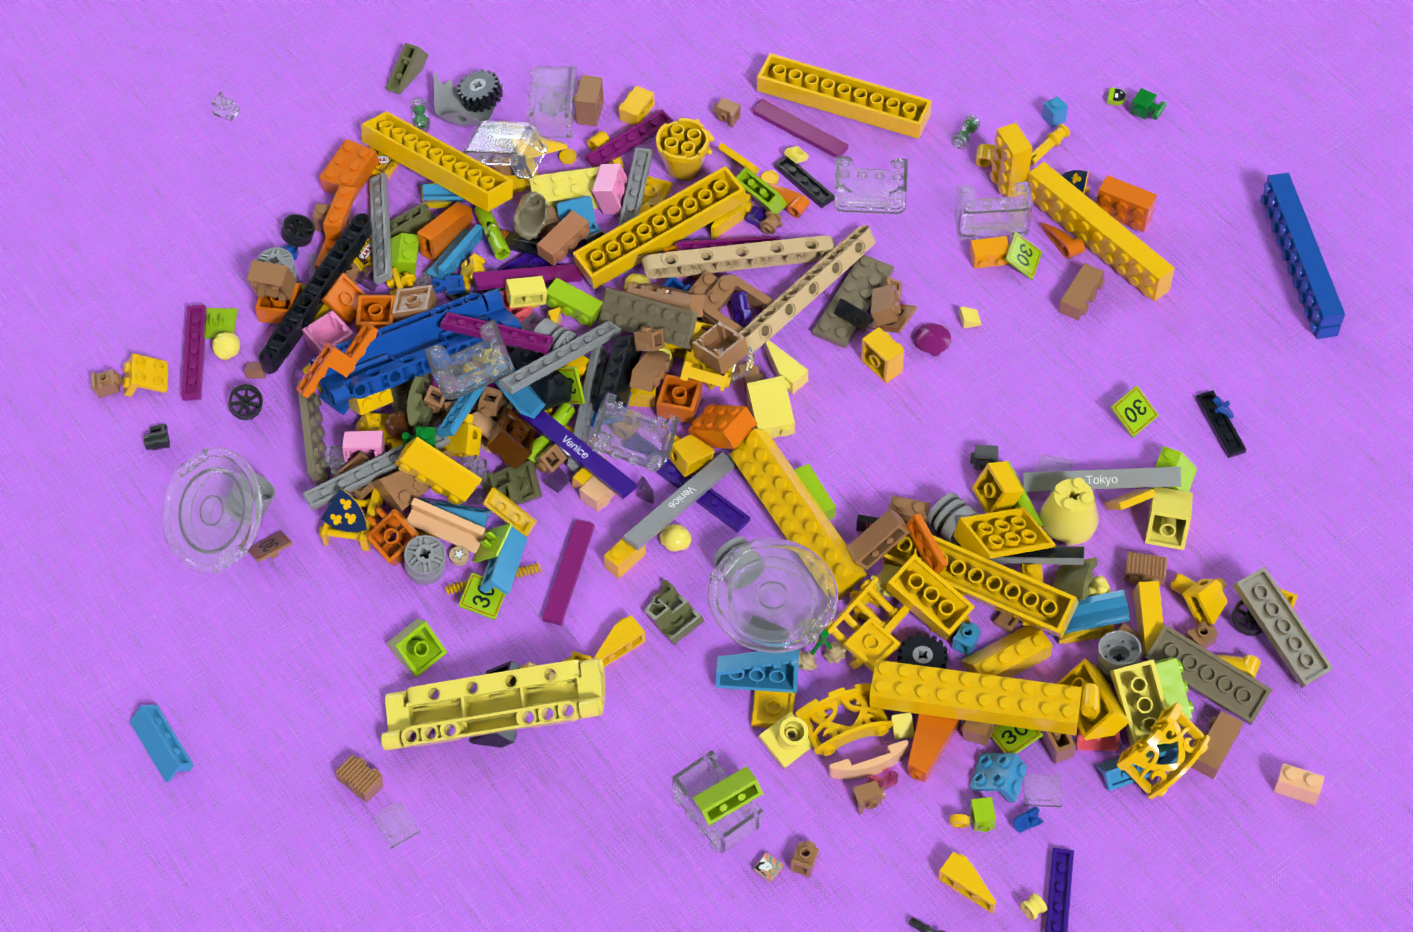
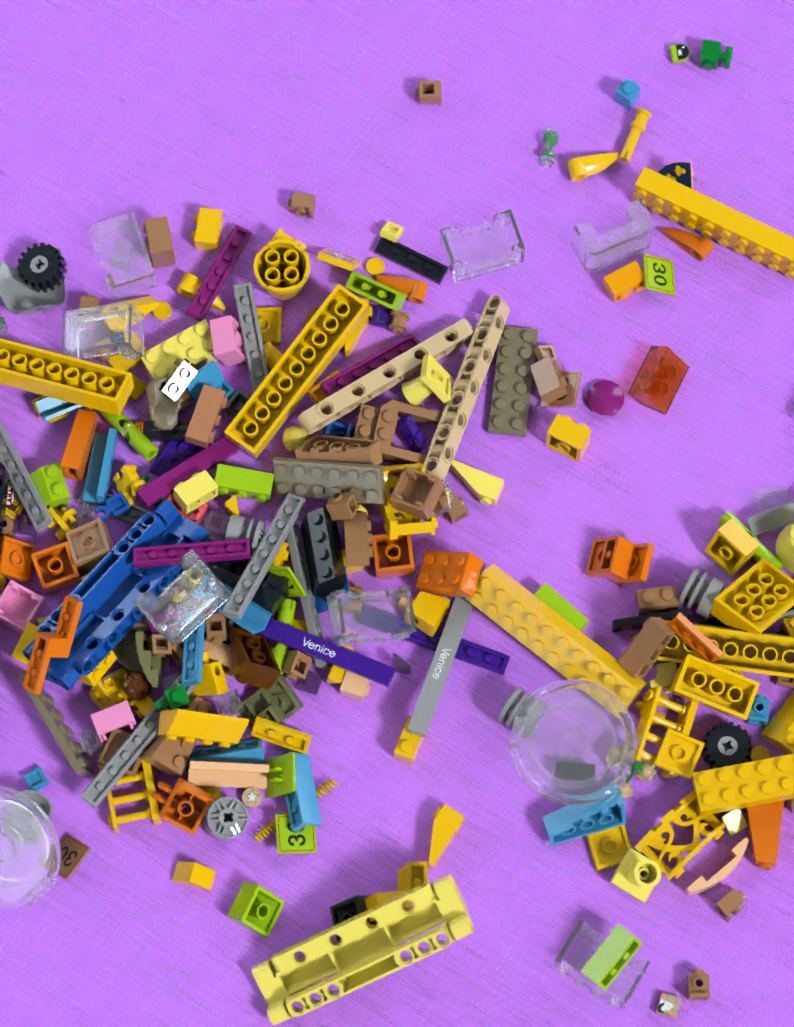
camera: 20 degrees left, 15 degrees up
(276, 477) = (36, 779): none -> dark azure tile
(345, 513) = (130, 800): dark blue shield -> none
(376, 601) = (194, 875): none -> yellow slope
(411, 221) = (42, 447): olive slope -> none
(512, 204) = (139, 388): none -> yellow slope
(552, 199) = (179, 379): none -> bracket
(568, 572) = (363, 776): magenta tile -> none
(672, 613) = (479, 784): olive slope -> none
(675, 537) = (450, 704): light yellow hair -> none
(771, 406) = (485, 535): light yellow slope -> none
(778, 271) = (432, 379): none -> light yellow plant
(800, 129) = (382, 198): magenta tile -> none
(844, 95) = (412, 147): yellow brick -> none
(853, 314) = (521, 402): black hinge -> none
(877, 61) = (429, 92): none -> medium nougat brick
(887, 468) = (619, 560): none -> orange bracket
(887, 781) = (739, 883): clear pink arm -> none
(969, 317) = (631, 361): light yellow slope -> none
(983, 455) = (705, 513): dark grey window -> none
(988, 337) = (658, 379): none -> clear orange slope
(1010, 158) = (613, 177): yellow brick -> none
(1082, 292) = (729, 296): medium nougat brick -> none
(1126, 203) = (736, 182): orange brick -> none

